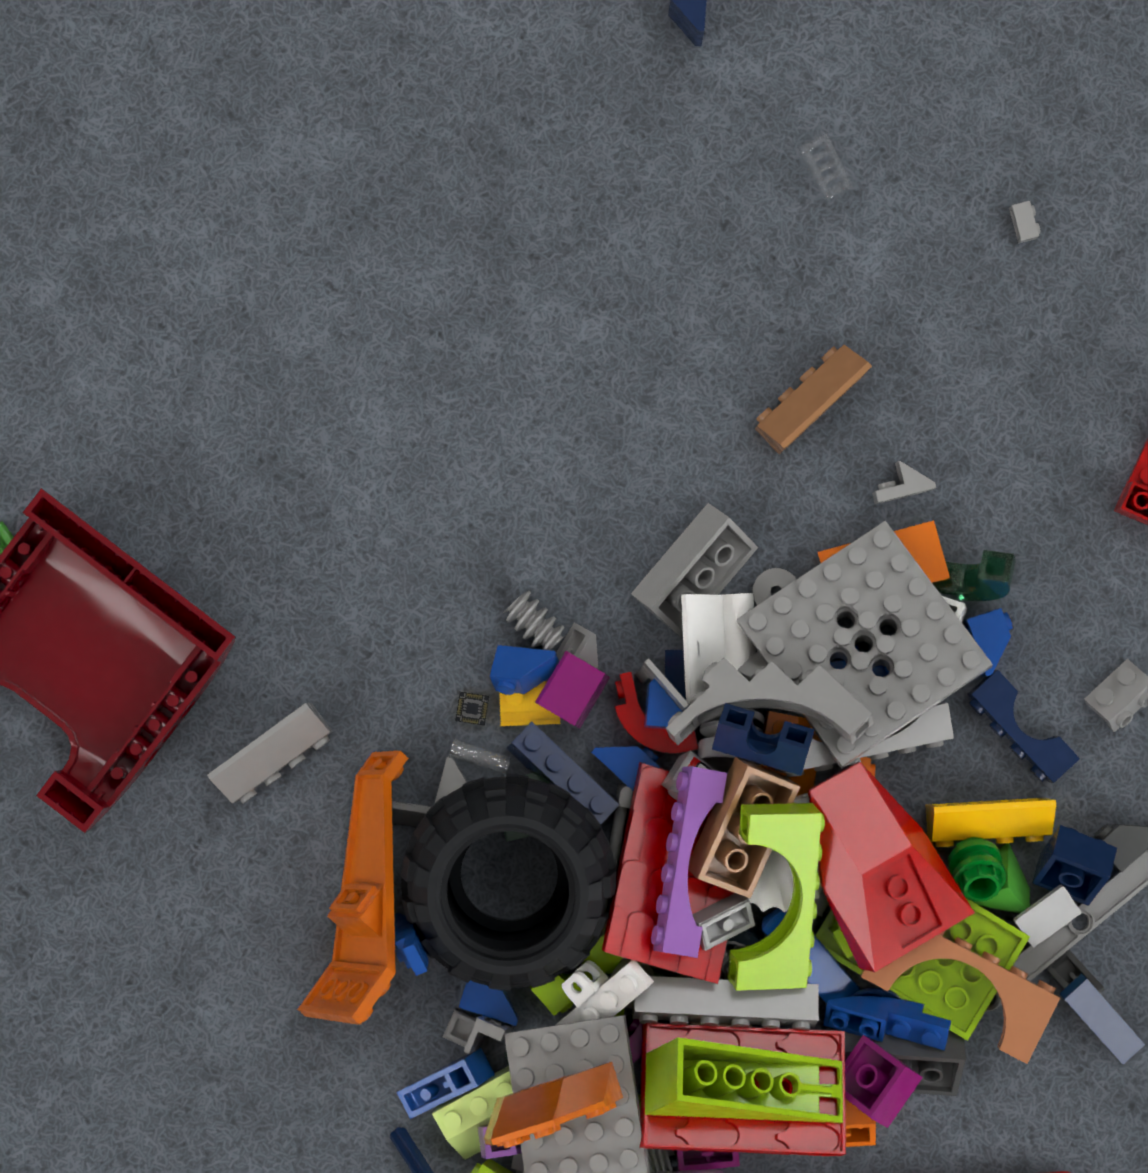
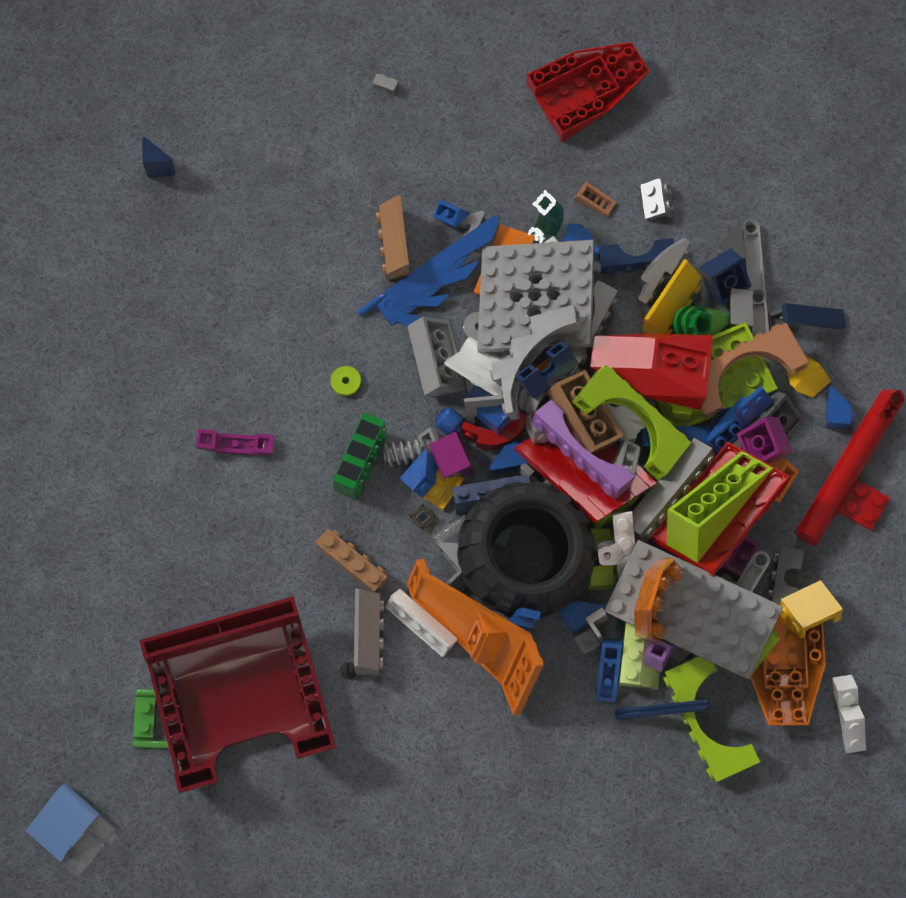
camera: 50 degrees left, 15 degrees down
(211, 760) = (347, 670): none -> black piece
(335, 807) = (421, 622): none -> white slope
(347, 665) = (352, 562): none -> medium nougat brick
(395, 401) = (234, 443): none -> magenta slope
(488, 574) = (360, 455): none -> green brick
(579, 464) = (342, 373): none -> lime piece
(620, 649) = (449, 421): none -> blue head
(785, 480) = (425, 281): none -> blue animal
(903, 444) = (450, 213): none -> blue slope
(998, 1133) = (837, 410): none -> blue slope
(1014, 1074) = (809, 380): none -> yellow slope
(1036, 775) = (666, 261): none -> light grey slope
(1052, 616) = (592, 205): none -> nougat slope

